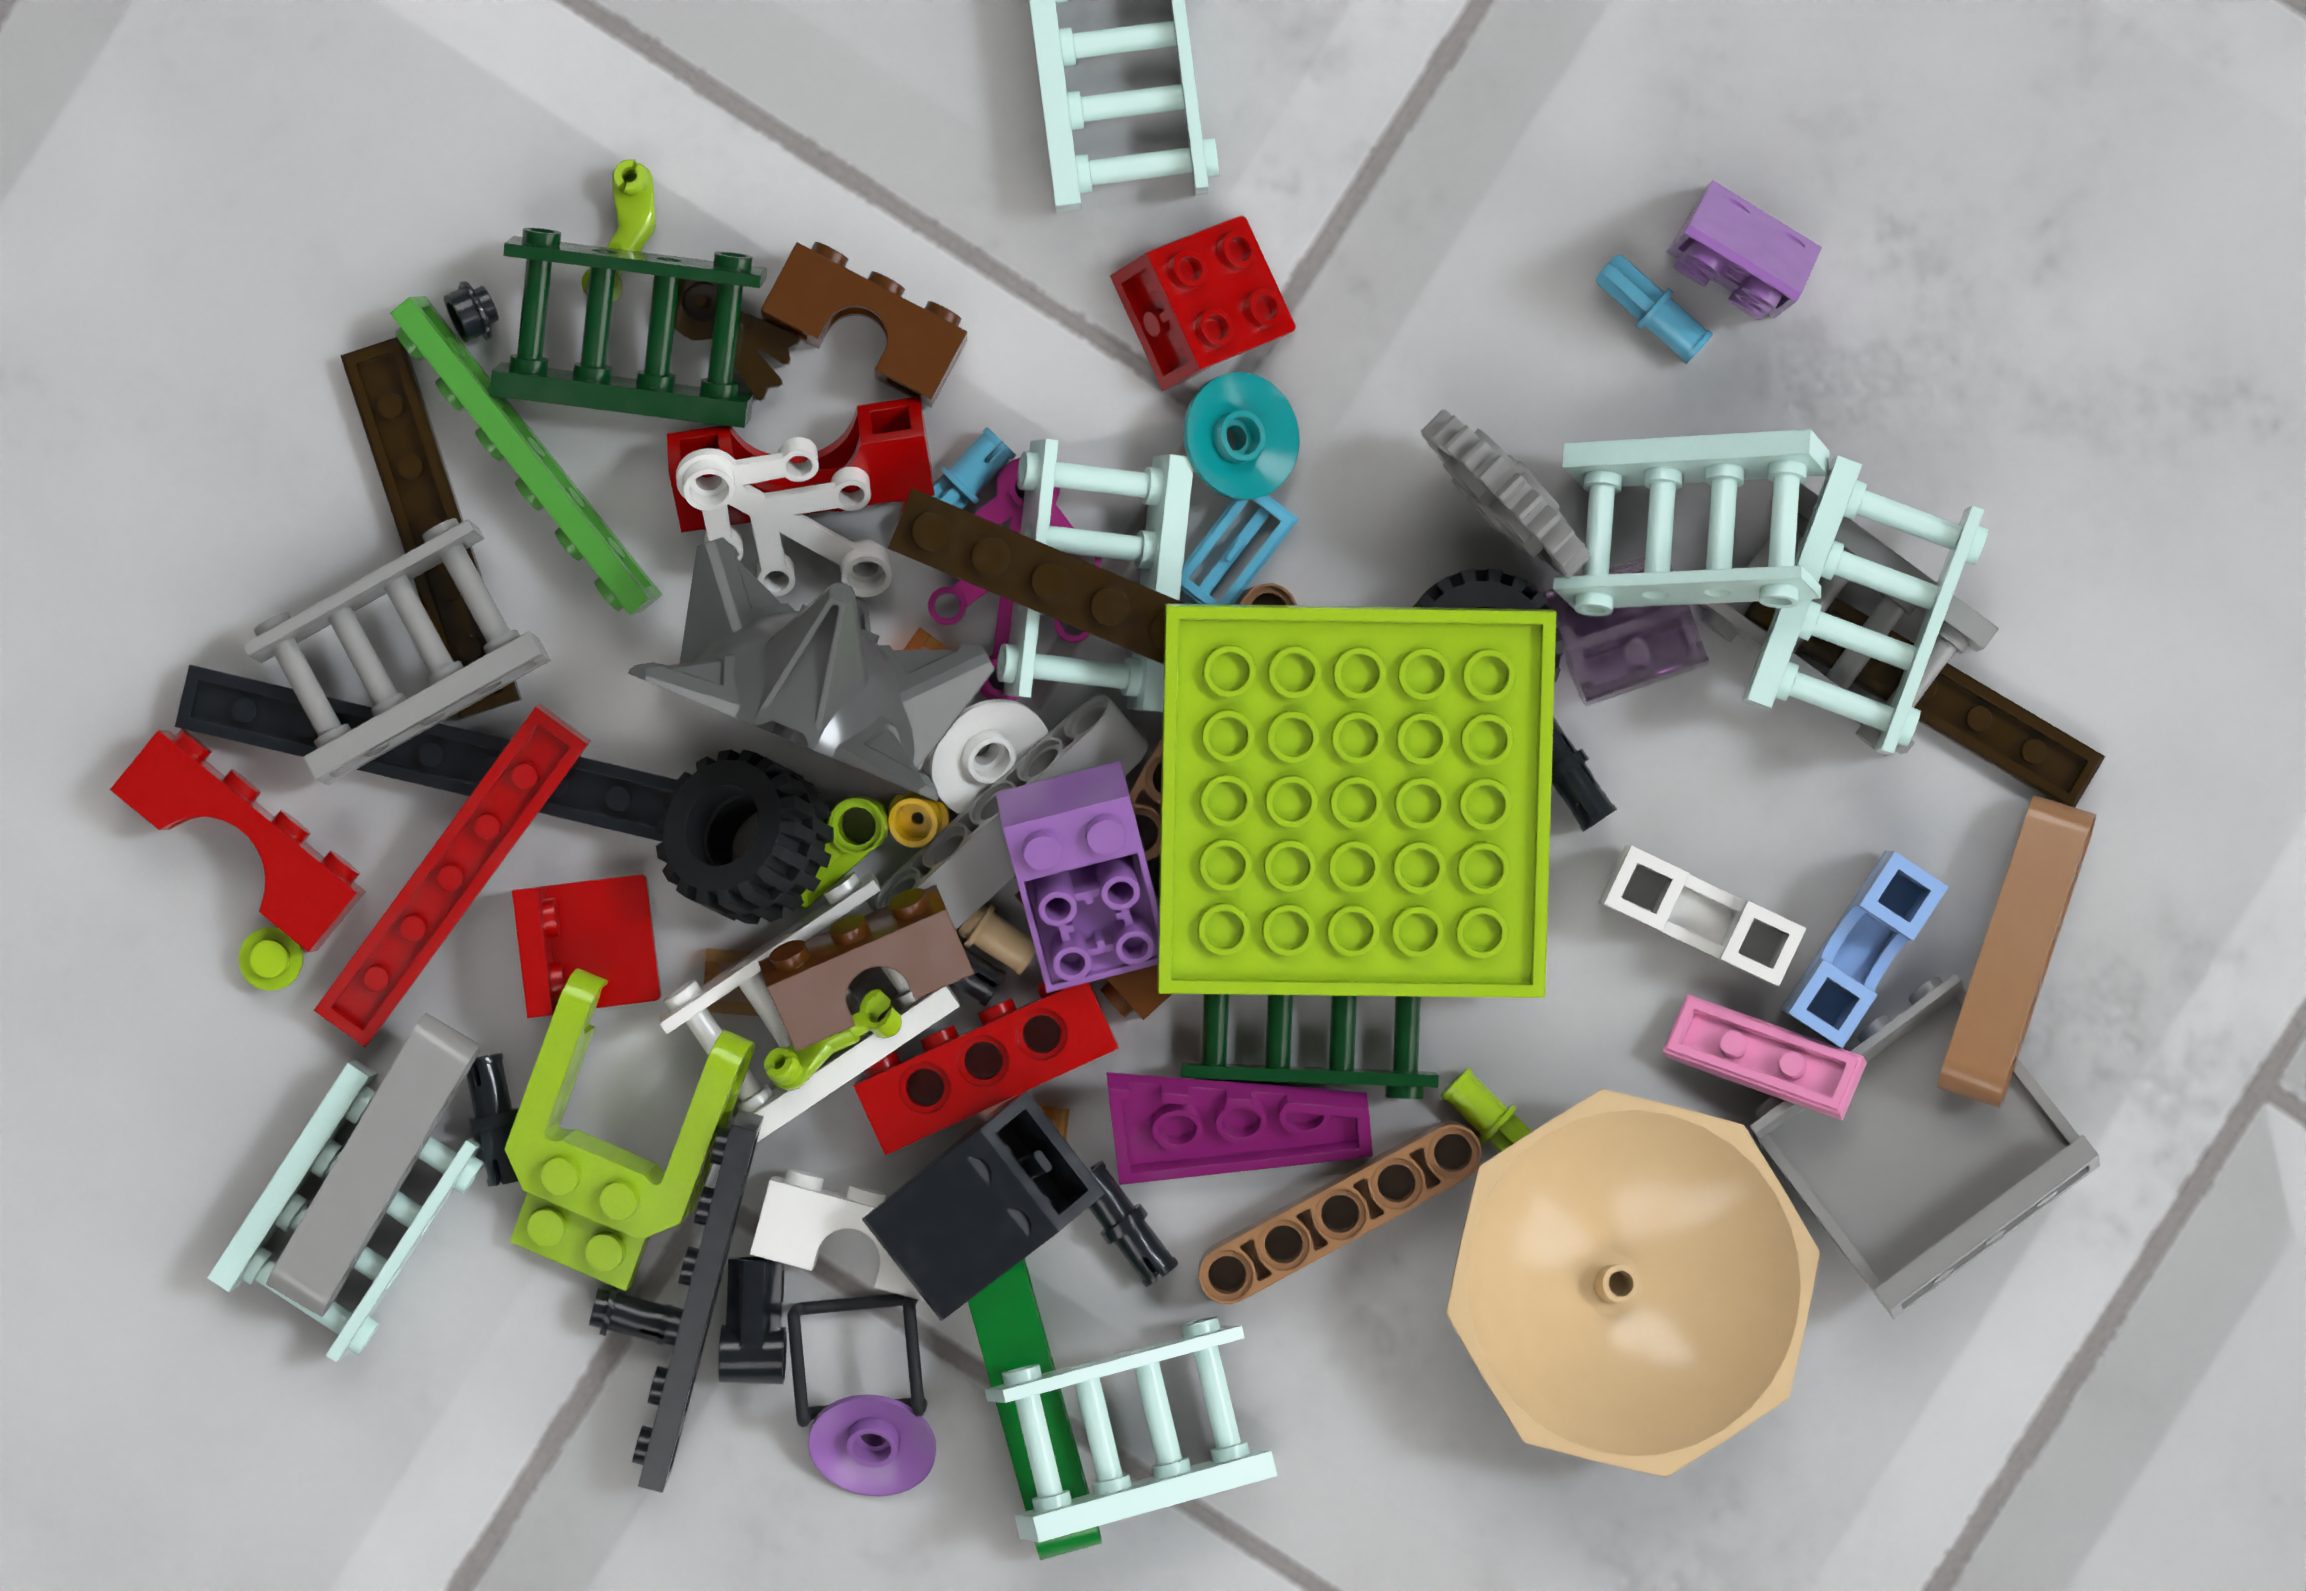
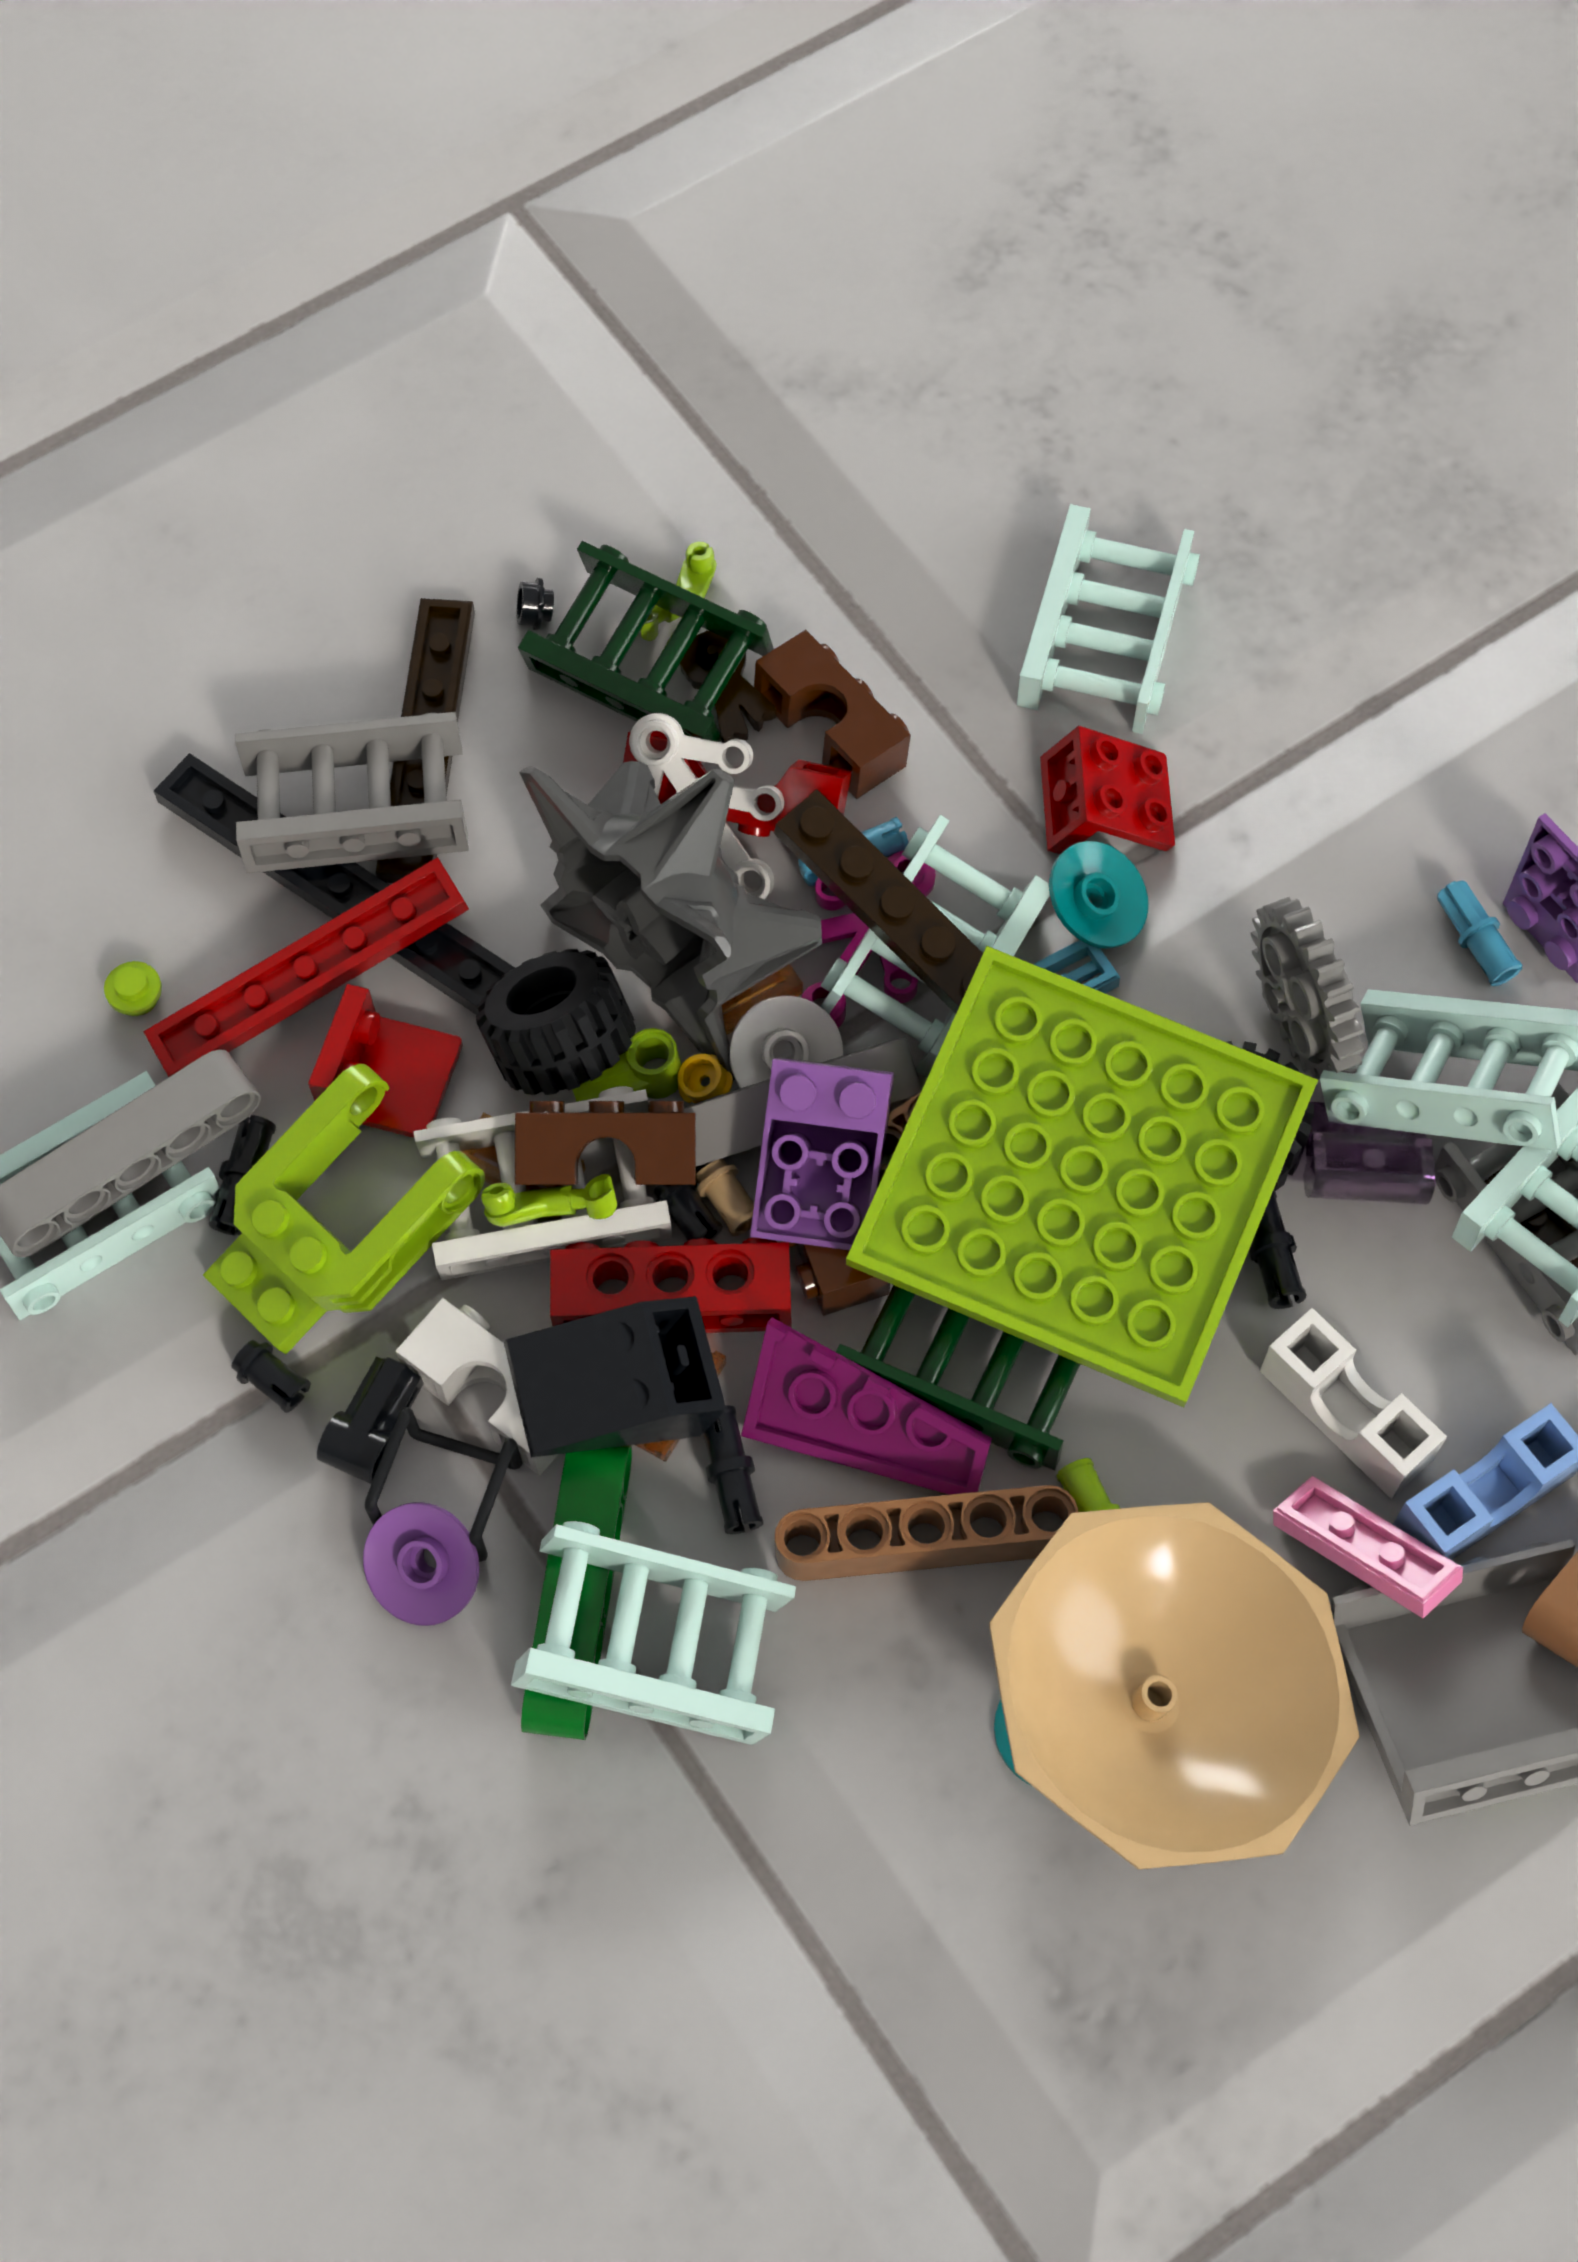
camera: 25 degrees right, 25 degrees down
(302, 888) = (181, 938): red arch -> none
(509, 437) = (515, 684): bright green plate -> none
(703, 1273) = (318, 1388): black plate -> none

